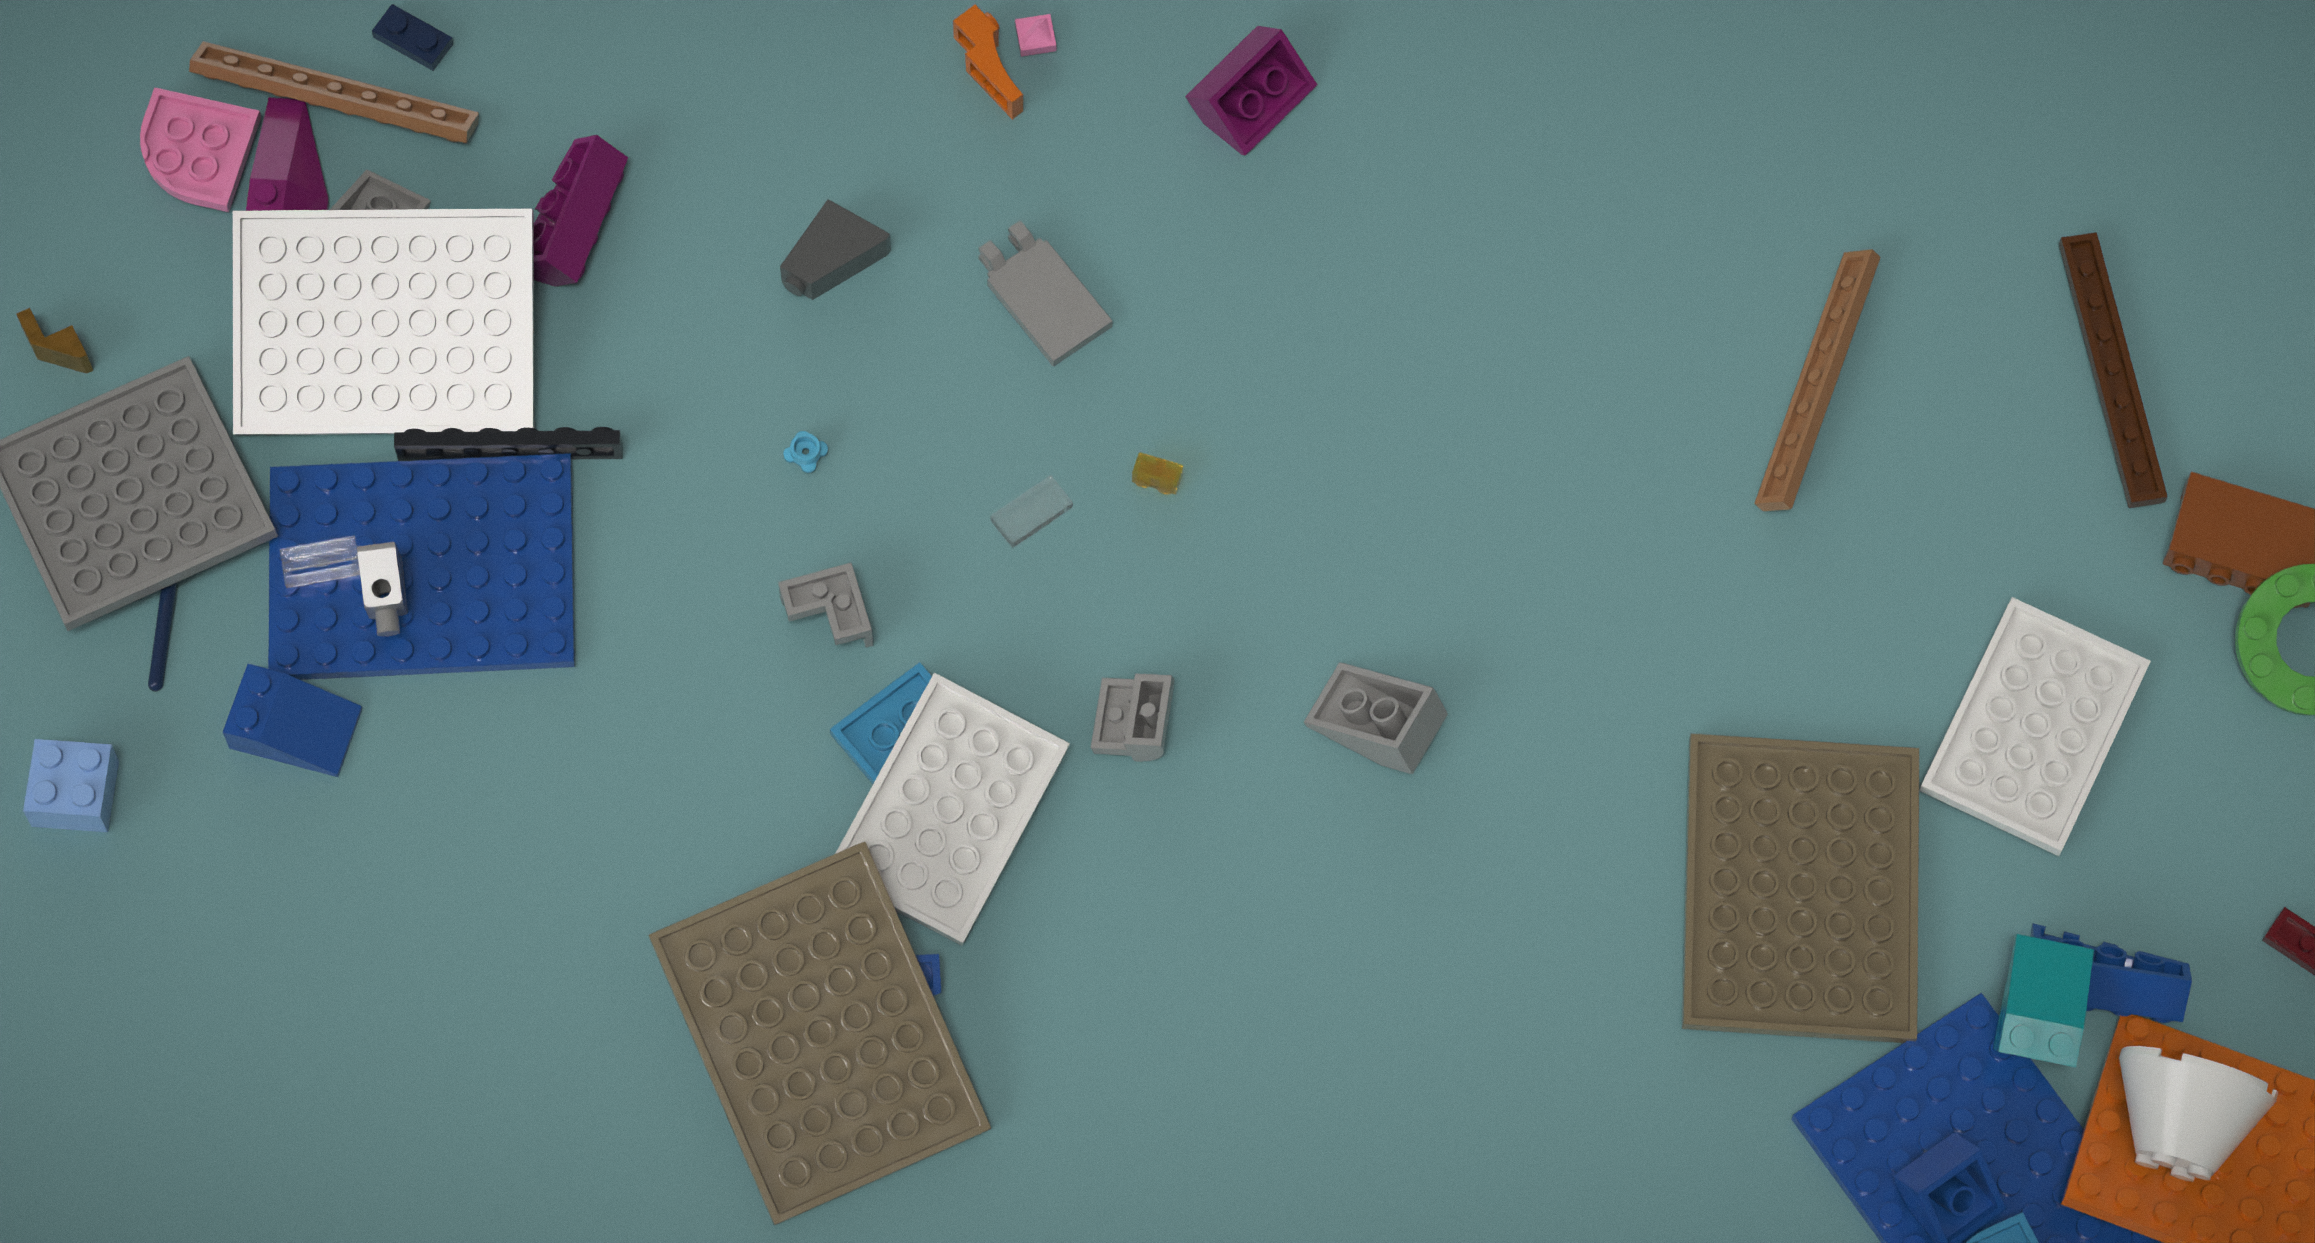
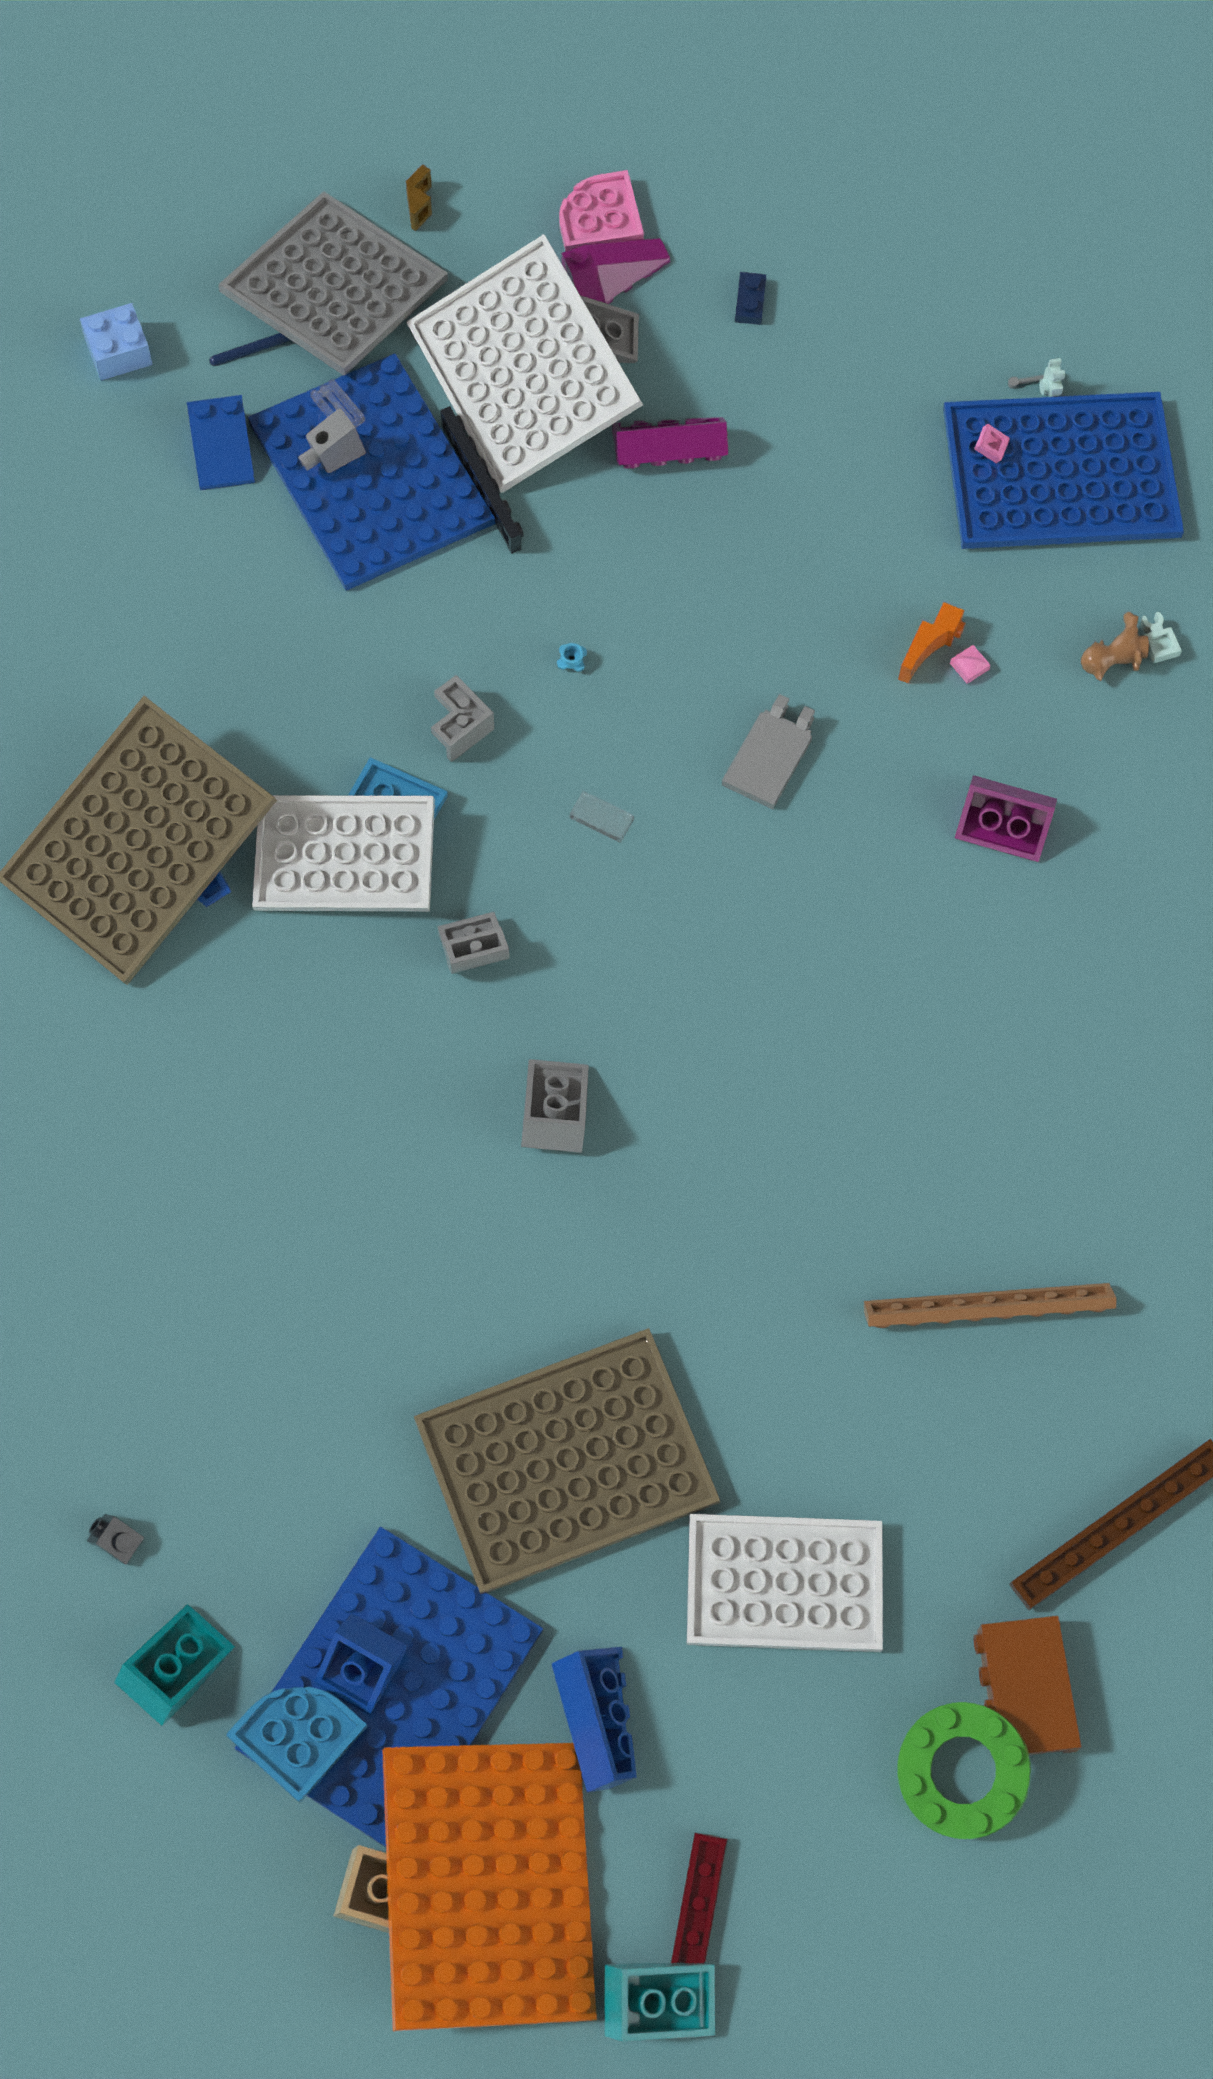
camera: 65 degrees right, 0 degrees up
(334, 92) = (682, 271): medium nougat plate -> none
(832, 251) = (727, 606): dark grey slope -> none
(1157, 474) = (671, 883): clear yellow piece -> none
(2044, 1001) = (542, 1671): teal slope -> none
(2189, 1110) = (486, 1811): white cone -> none

